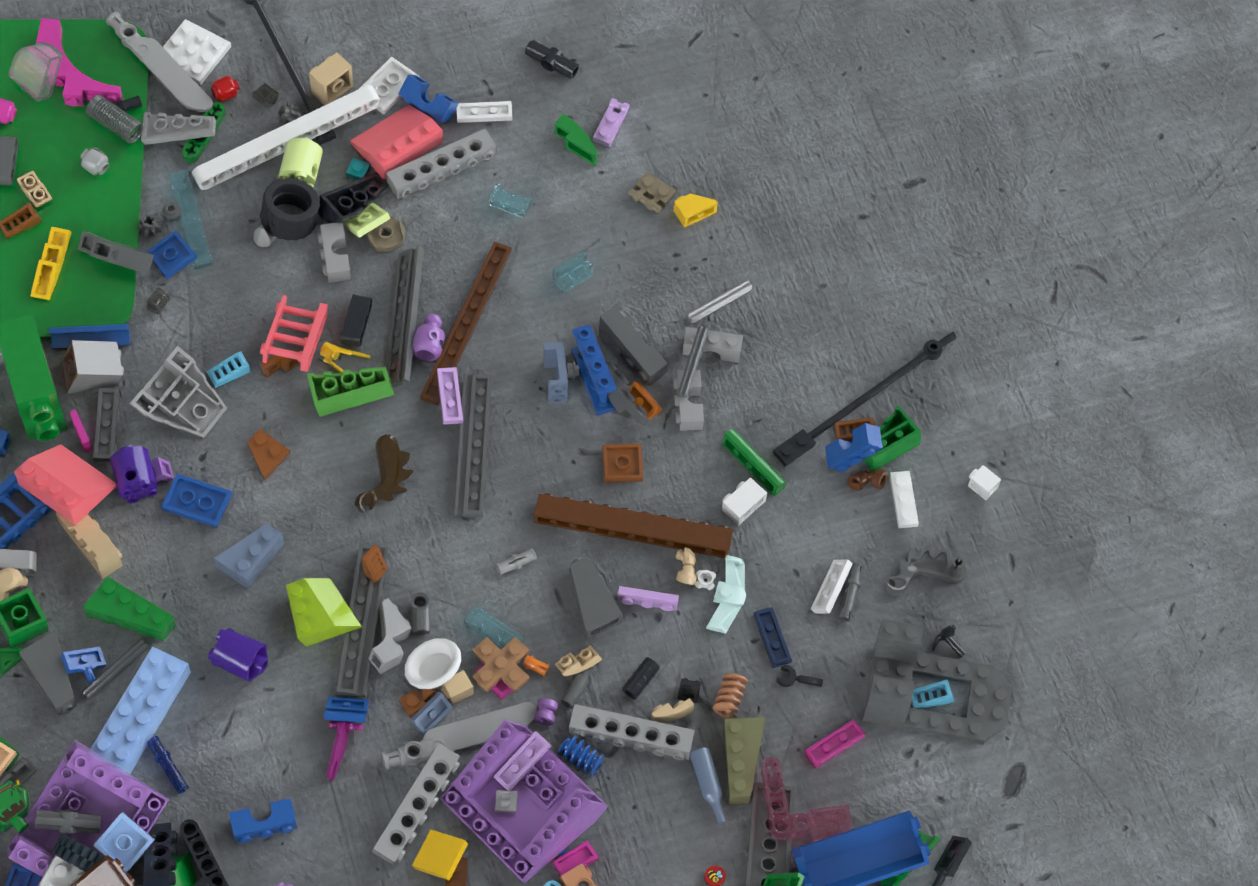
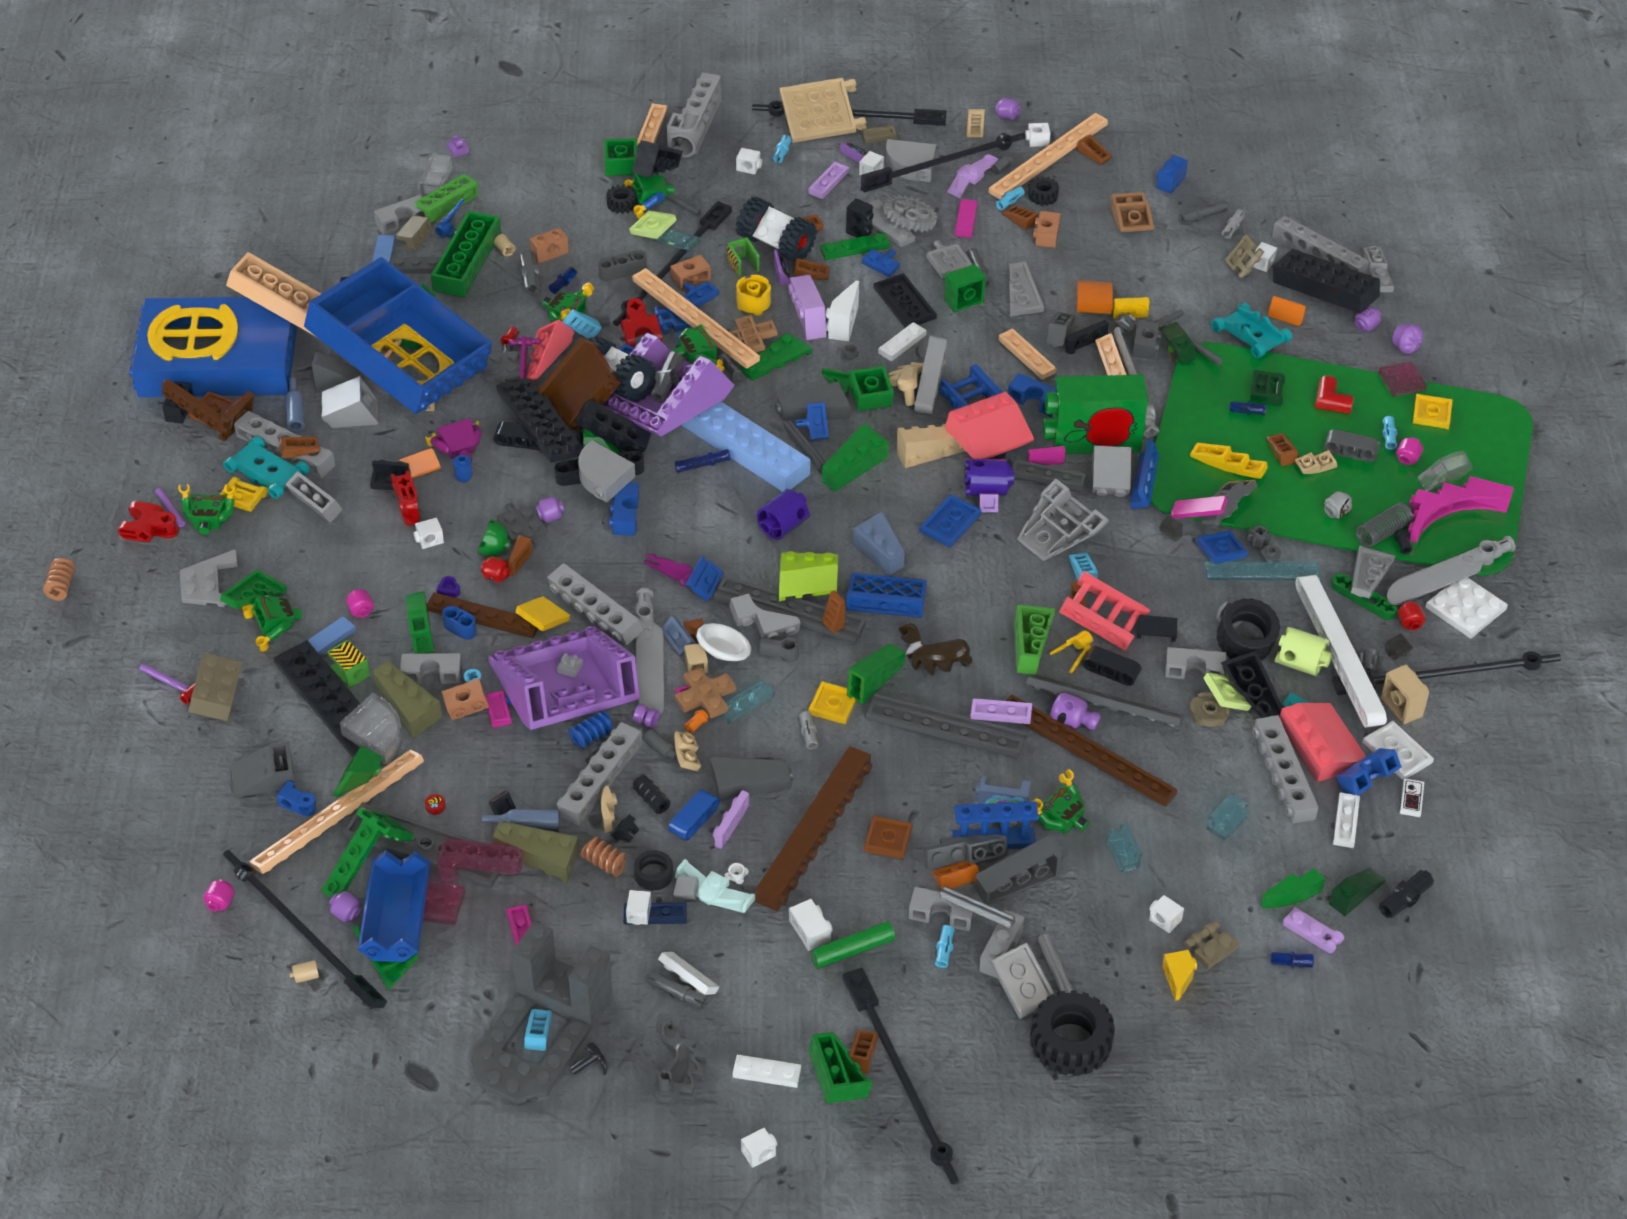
camera: 110 degrees right, 15 degrees down
(124, 841) = (631, 401): light blue plate -> none
(135, 273) = (1199, 507): none -> dark pink tile
(230, 848) = (604, 471): none -> light grey brick
(267, 452) = (986, 578): dark orange wing -> none
(298, 289) = (1157, 626): none -> black hinge
(331, 537) = (885, 602): none -> blue fence
(430, 515) = (873, 672): none -> green slope
(440, 68) = (1412, 797): none -> tile
(471, 551) = (832, 703): none -> yellow tile
(522, 761) = (600, 679): lavender plate -> none
(545, 325) = (1064, 808): none -> green torso
(559, 95) = (1355, 890): none -> dark green slope
(635, 228) = (1166, 913): none -> white brick
(648, 131) = (1292, 959): none -> clear blue axle
(652, 633) = (694, 814): none -> blue beam
(688, 559) = (744, 855): tan arm -> none
(701, 810) = (502, 803): none -> black tile
(727, 390) = (944, 946): none -> medium azure pin
(728, 635) = (653, 857): none -> black tyre
(738, 616) = (686, 887): none -> light grey tile
(748, 318) = (1022, 979): none -> light grey tile
(782, 644) = (638, 907): none -> white brick
(792, 251) = (1068, 1055): none -> black tyre
(801, 678) = (605, 918): black piece -> none
(844, 454) = (830, 1021): blue arch -> none
(860, 479) = (801, 1039): reddish brown arm -> none

